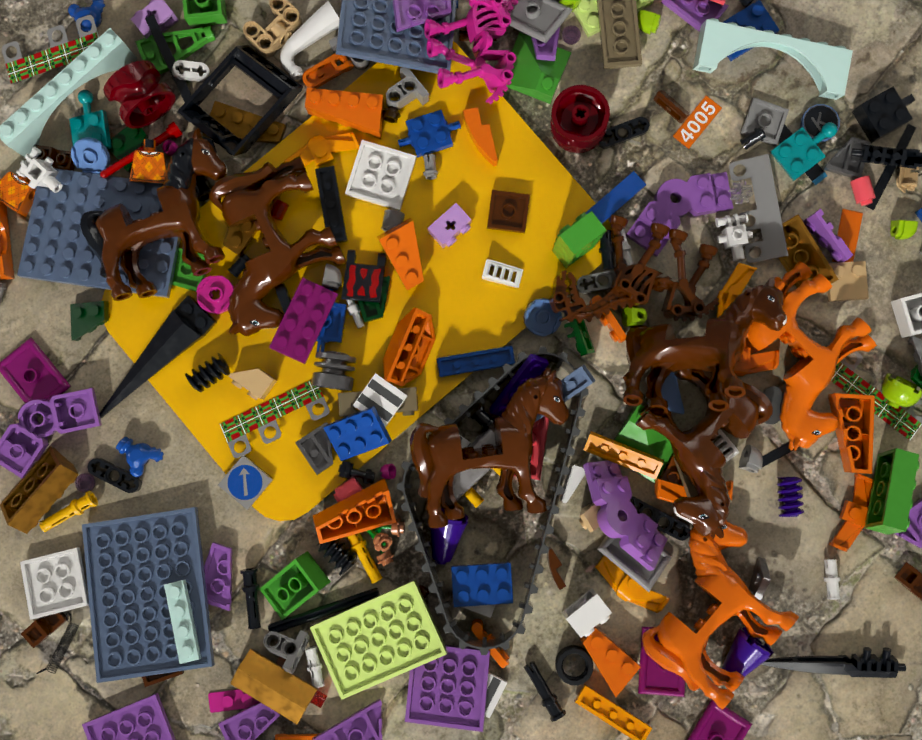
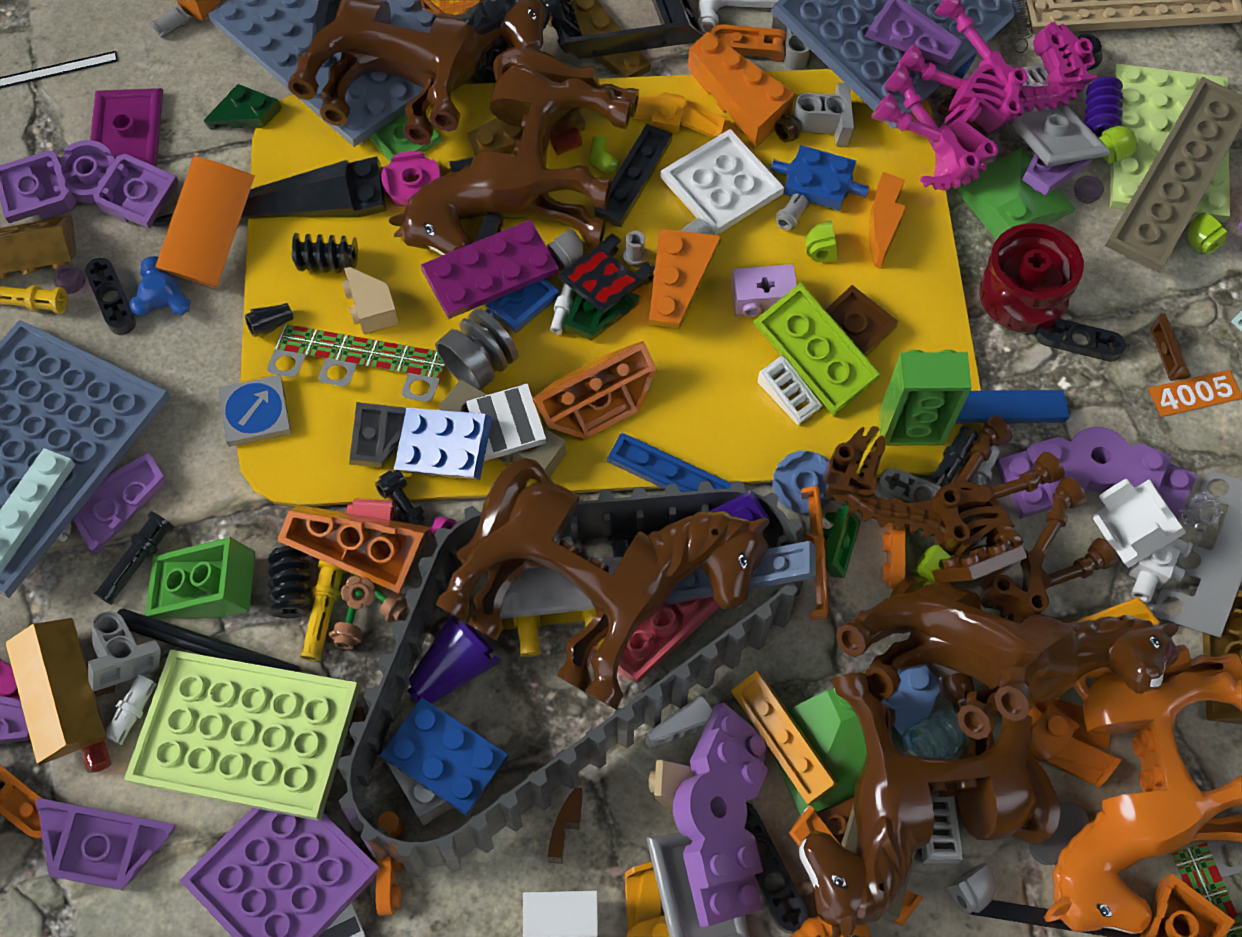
camera: 35 degrees right, 20 degrees down
(132, 403) = (204, 222): none -> orange slope
(210, 430) = (266, 319): none -> black cone
(305, 207) = (600, 158): none -> lime arm
(366, 255) = (635, 252): none -> light grey pin
(458, 175) = (821, 243): none -> lime piece
(500, 242) = (817, 349): none -> lime plate
(573, 351) = (817, 538): none -> orange plate
(659, 307) = (979, 562): none -> reddish brown plate
(692, 405) = (935, 735): none -> clear light blue wheel
(716, 225) = (1136, 521): none -> white panel

